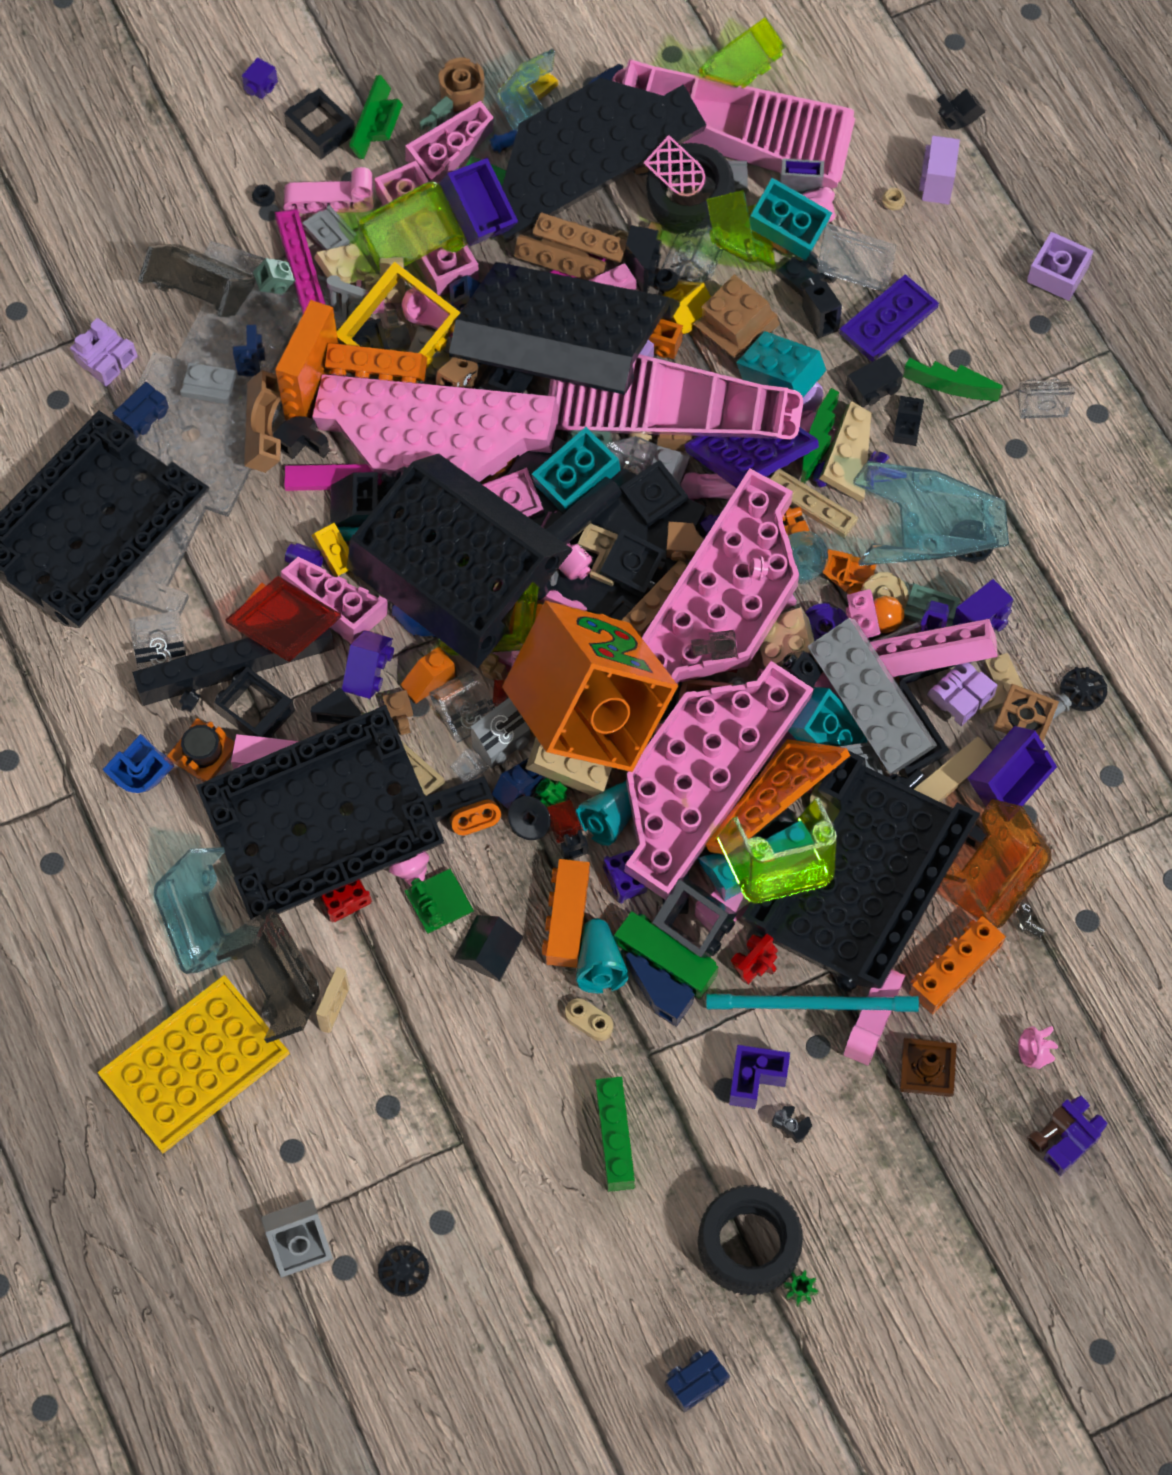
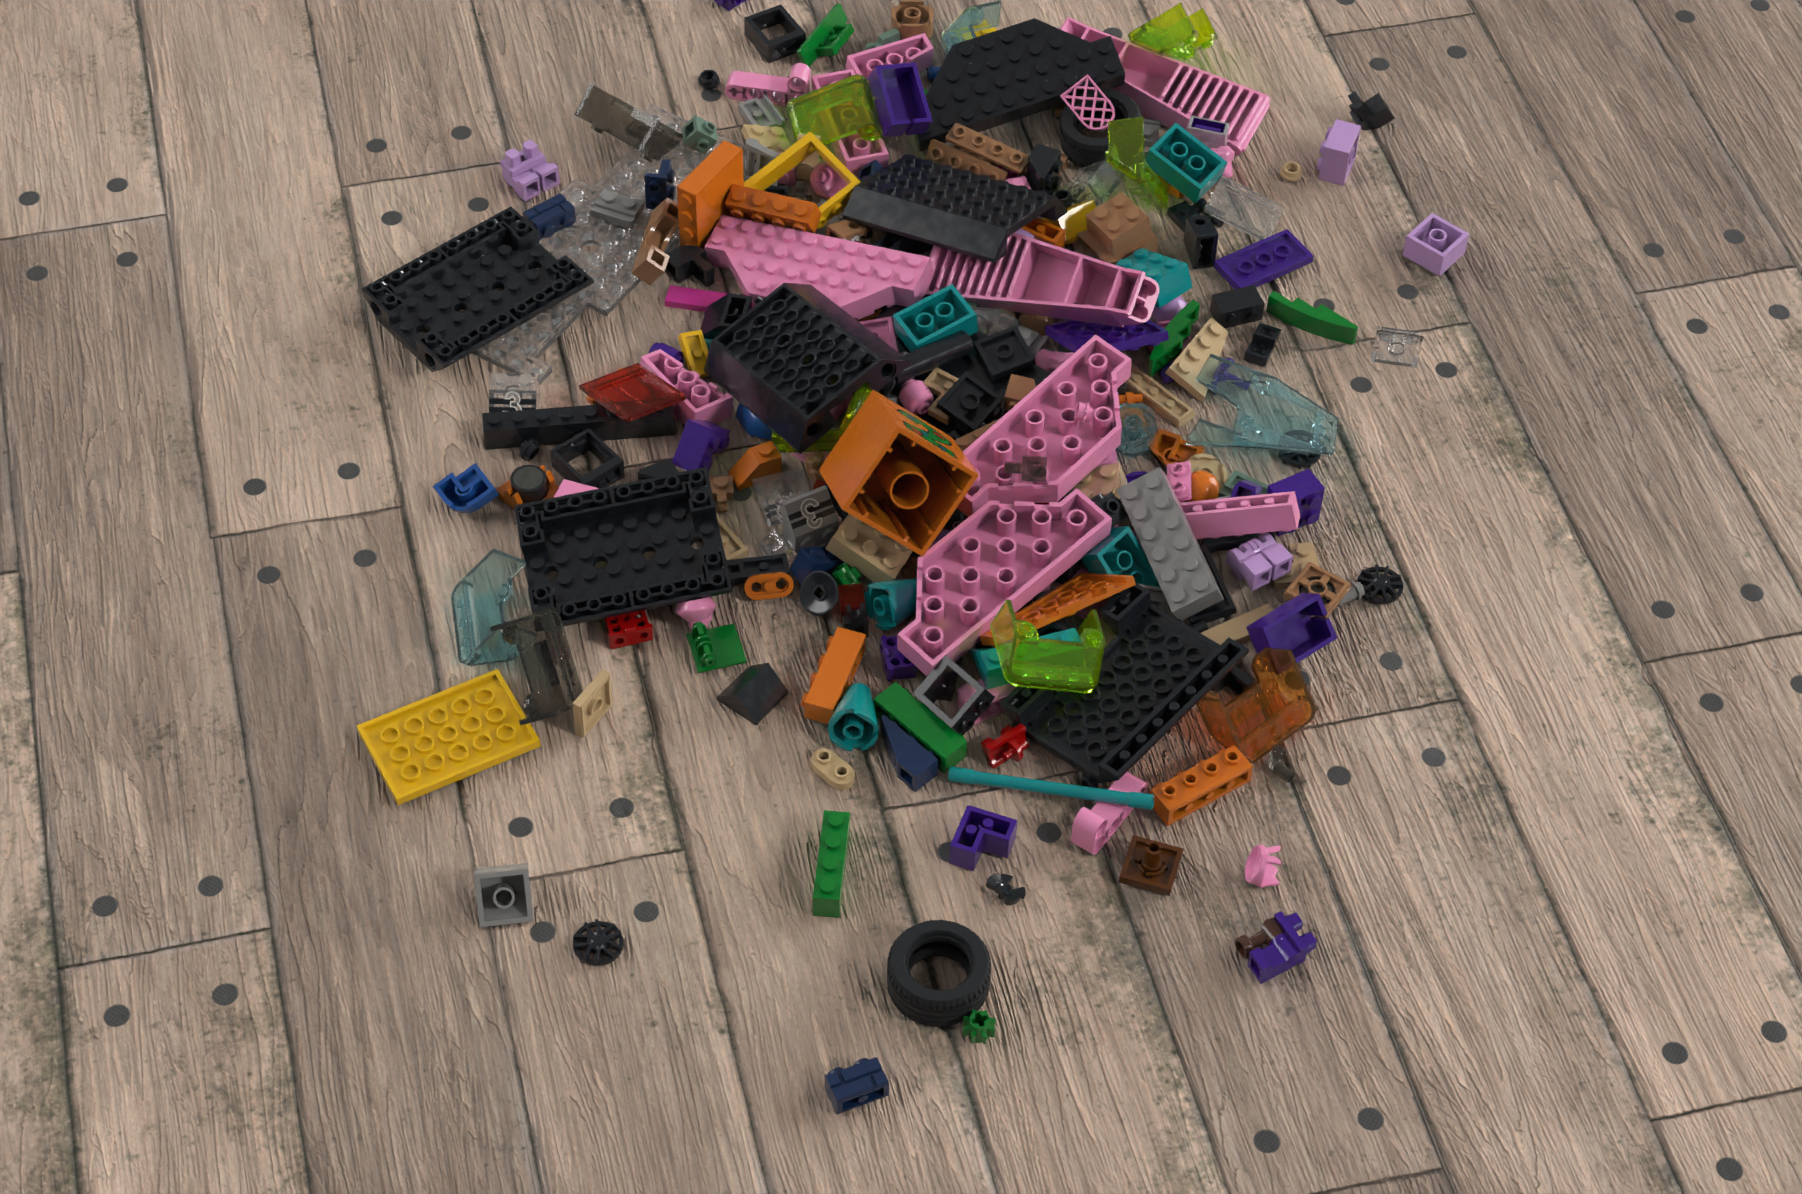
camera: 10 degrees right, 15 degrees down
(299, 257) = (726, 118): dark pink tile -> none

